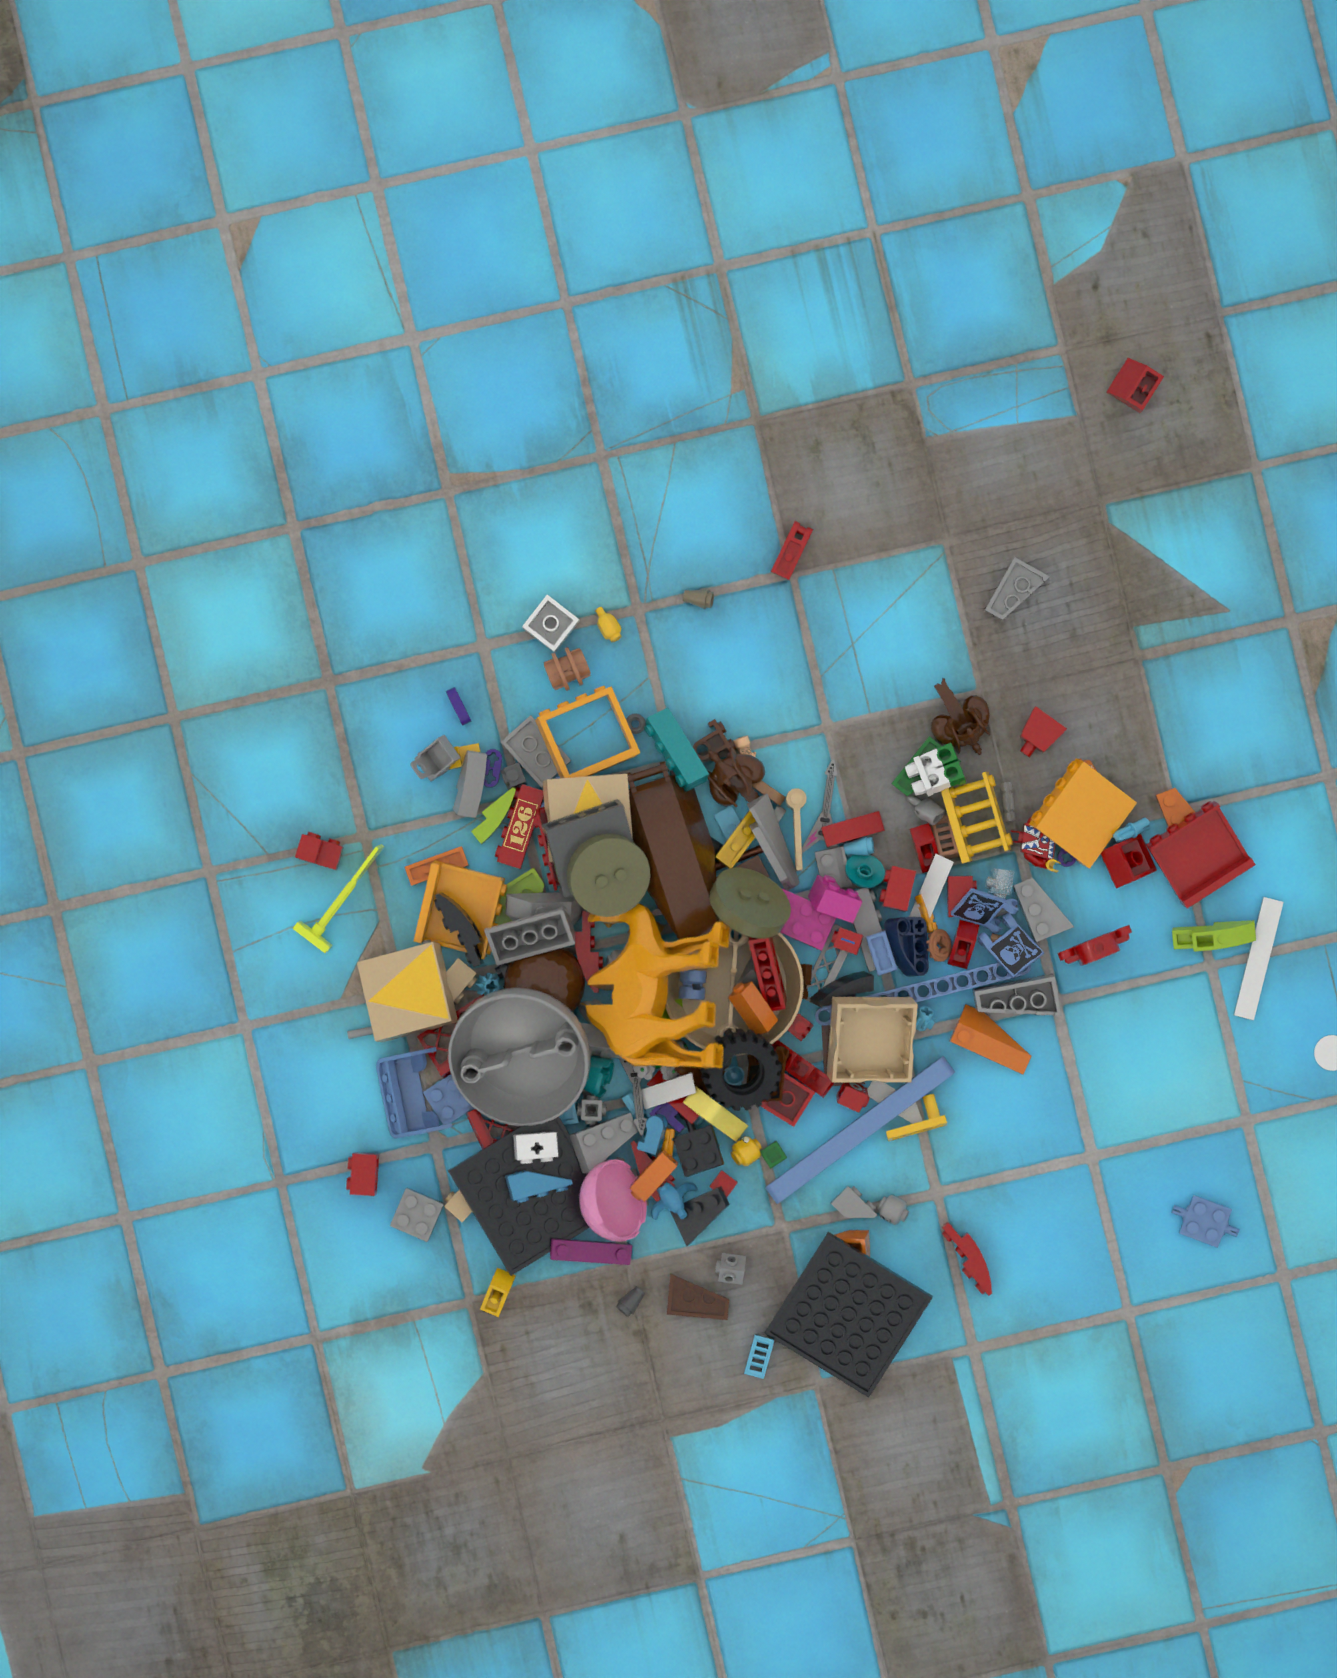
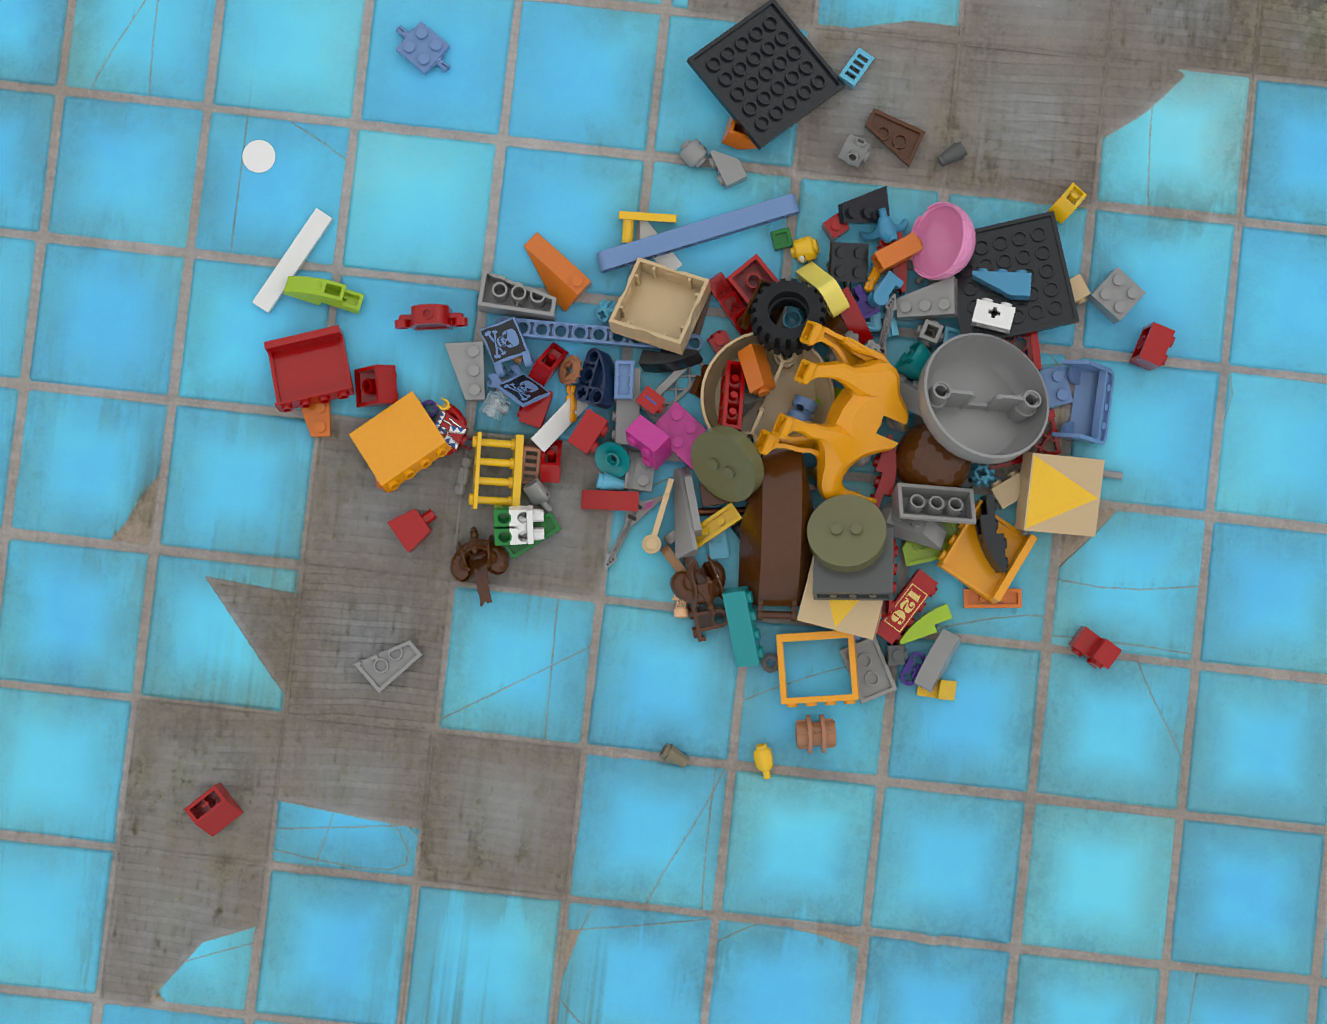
camera: 165 degrees left, 0 degrees up
(314, 934) = (1122, 575): neon yellow piece -> none
(435, 759) = (962, 694): light grey piece -> none
(458, 706) = (923, 734): dark purple beam -> none
(550, 623) = (815, 779): white brick -> none
(591, 1251) = (977, 209): magenta plate -> none
(668, 1091) = (858, 323): white sticker -> none
(791, 551) = (576, 768): red plate -> none
(852, 1096) = (694, 263): red brick -> none
(974, 1264) = (639, 81): red slope -> none
(1131, 830) = (362, 411): medium azure axle -> none

